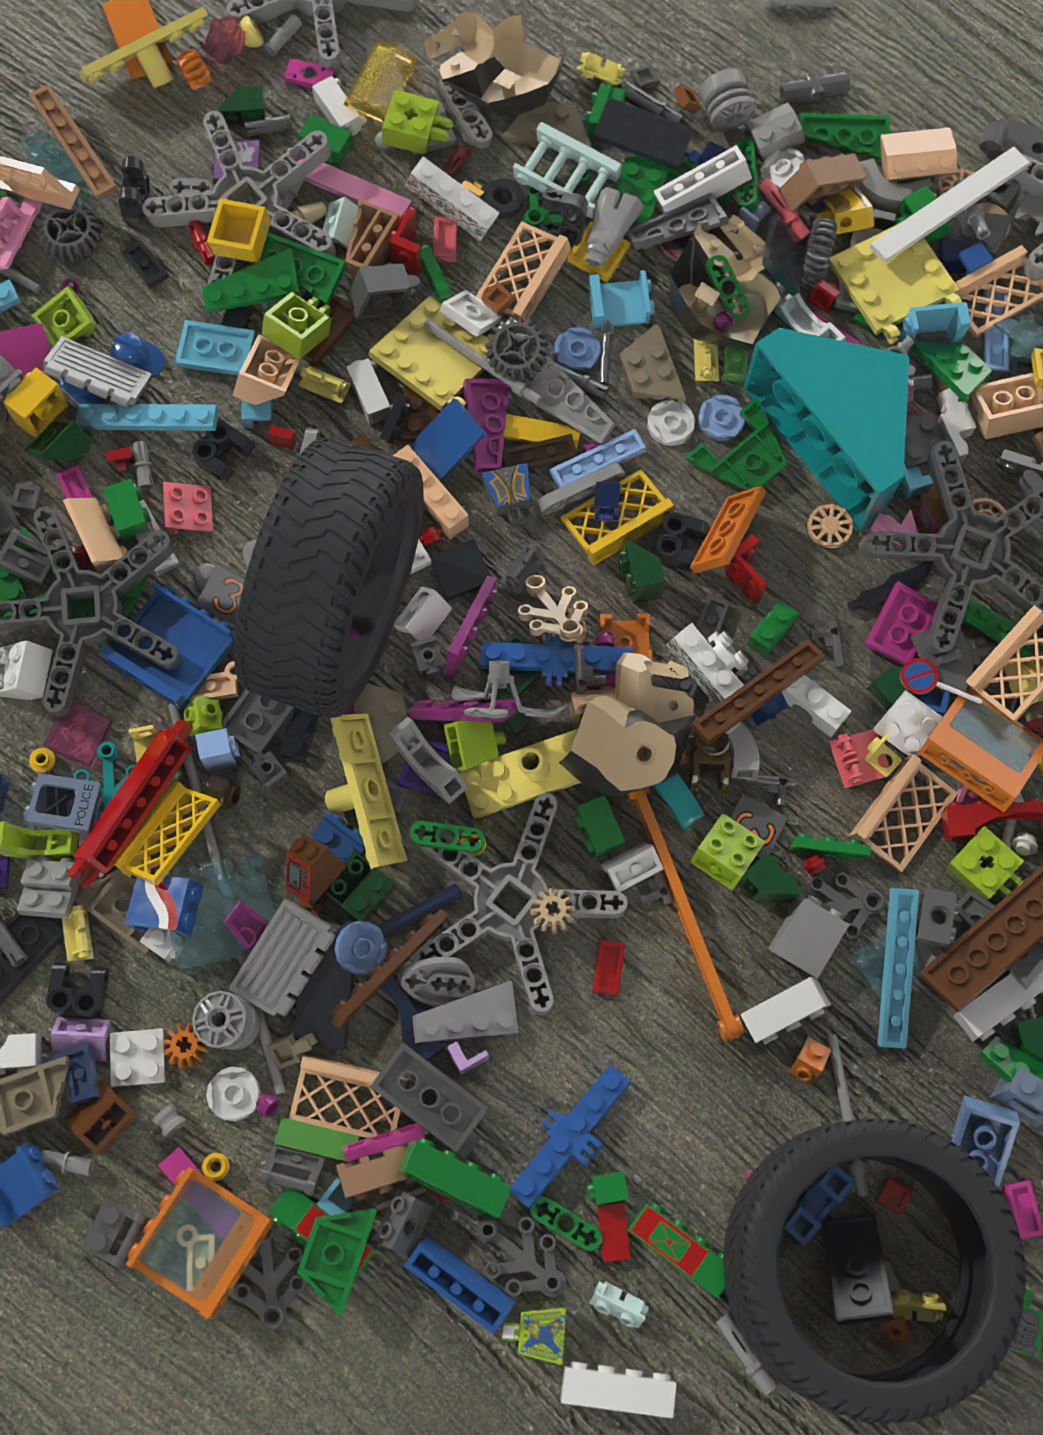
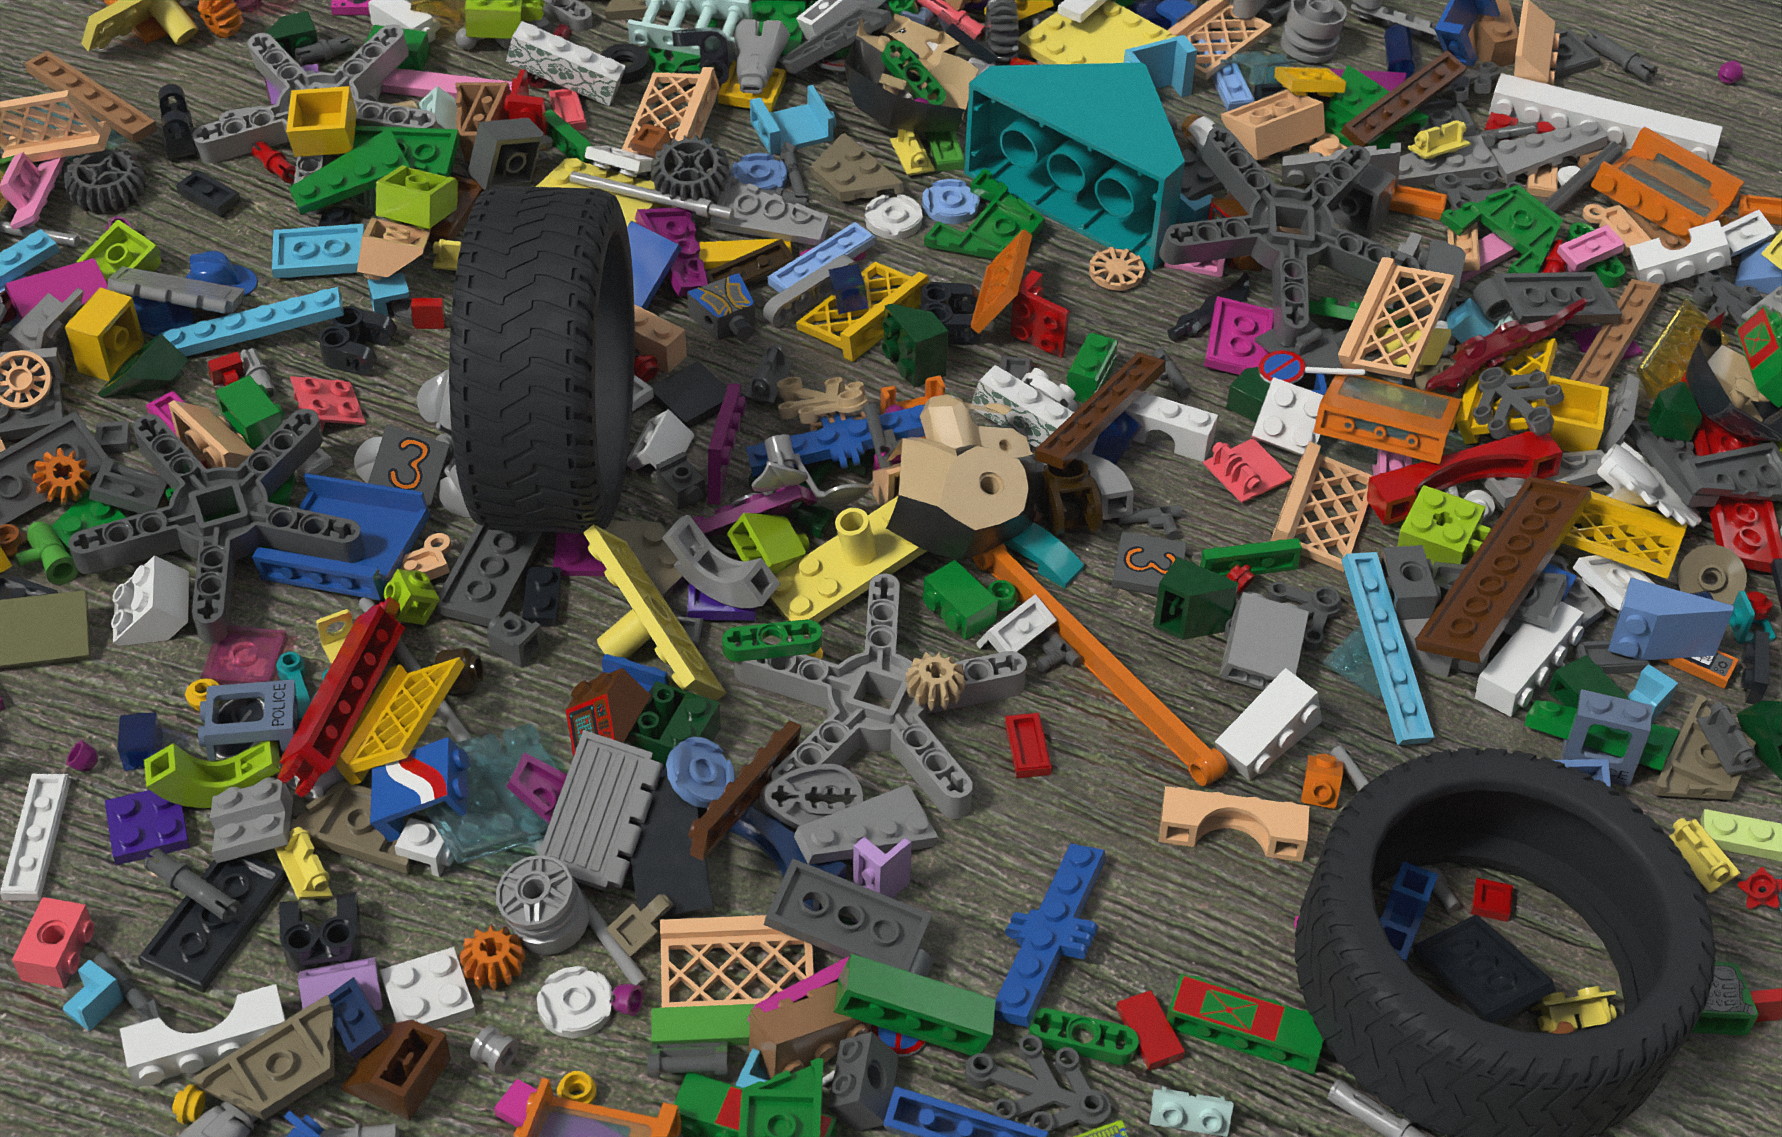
camera: 15 degrees left, 25 degrees down
(217, 750) = (440, 619): light blue brick -> none
(420, 910) = (747, 749): dark blue axle -> none
(608, 1188) = (1123, 975): green brick -> none
(632, 821) = (1005, 593): none -> green plate
(727, 851) = (1125, 591): lime bracket -> none
(762, 1096) = (1275, 825): none -> light nougat arch
(878, 748) = (1264, 455): light yellow bracket -> none
(954, 366) = (1199, 102): green wing -> none

